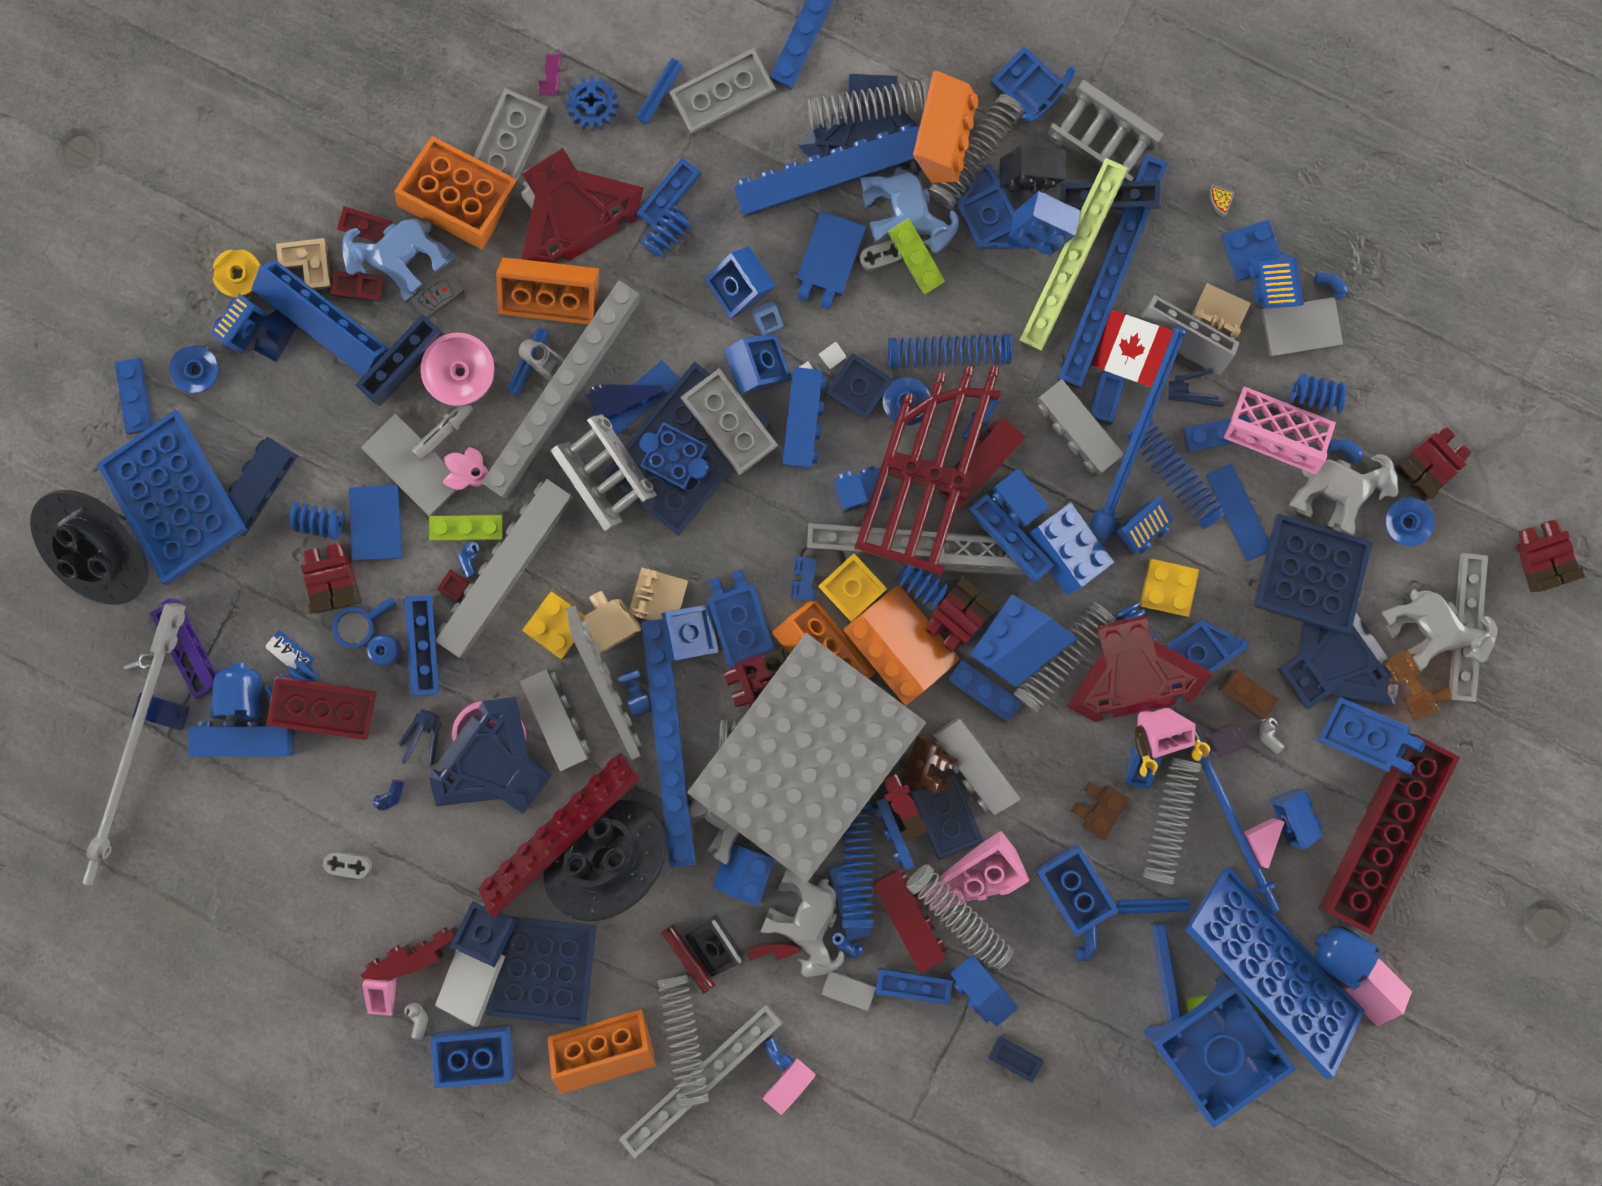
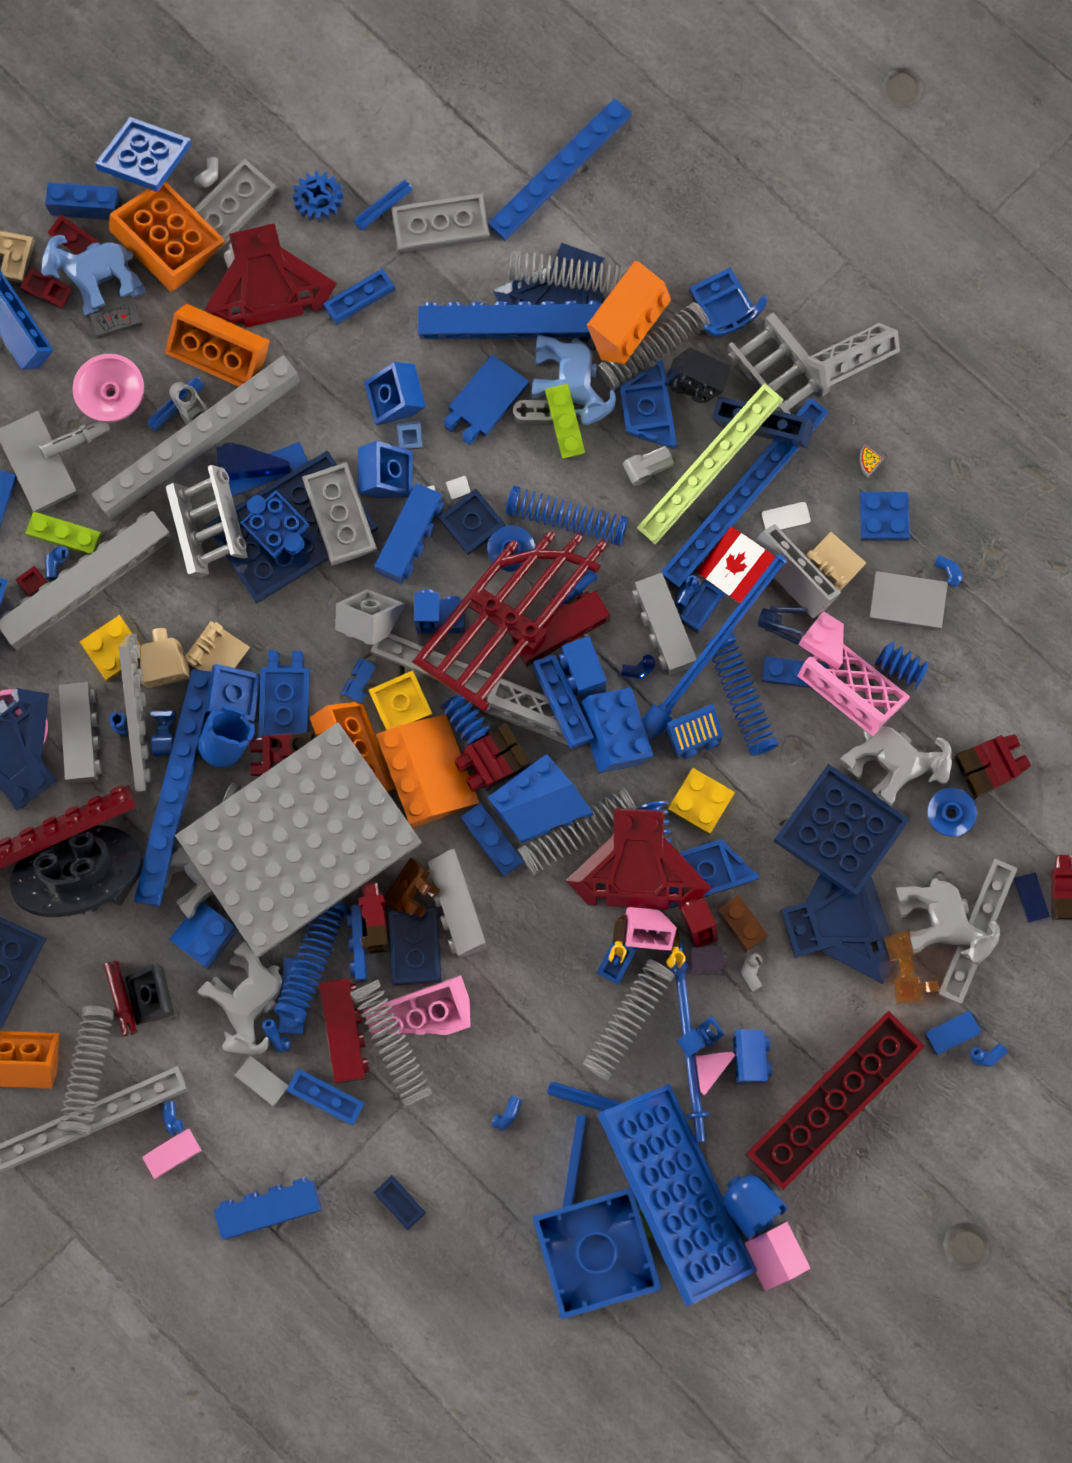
camera: 20 degrees right, 10 degrees down
(359, 184) = (82, 200): none -> blue brick
(399, 361) = (57, 364): dark blue brick -> none
(403, 116) = (143, 154): none -> plate
(462, 467) = (80, 478): bright pink plate -> none
(476, 116) = (208, 176): none -> light grey arm
(552, 68) = (295, 154): magenta piece -> none
(587, 700) = (119, 723): none -> blue pin
(666, 233) = (343, 329): blue piece -> none
(700, 680) = (225, 737): none -> blue cylinder
(780, 948) = (210, 1018): dark red slope -> none
(793, 514) = (367, 616): none -> light grey slope
(897, 1108) = (268, 1209): none -> blue brick
(985, 993) = (389, 1123): blue brick -> none
(1005, 278) = (642, 468): none -> light grey piece
(1044, 223) = (691, 426): blue brick -> none
(1070, 478) = (641, 670): none -> clear blue arm
(1076, 889) = (512, 1053): blue brick -> none
(1089, 387) = (687, 590): none -> blue arm
(1105, 811) = (568, 992): reddish brown plate -> none
(1157, 281) = (787, 516): none -> white sticker
(1181, 96) = (855, 353): none -> light grey fence
(1210, 707) = (699, 923): none -> dark red slope
(1239, 393) = (825, 640): none -> bright pink wing
(1239, 512) = (792, 752): blue sticker -> none
(1240, 821) = (700, 1037): none -> blue leg
(1276, 279) = (891, 545): blue slope -> none
(1347, 446) = (916, 725): blue arm -> none
(1369, 737) = (845, 1001): blue tile -> none
(1473, 730) = (952, 1033): none -> blue tile
(1507, 577) = (1031, 897): none -> clear blue piece
(1513, 743) = (987, 1058): none -> blue arm

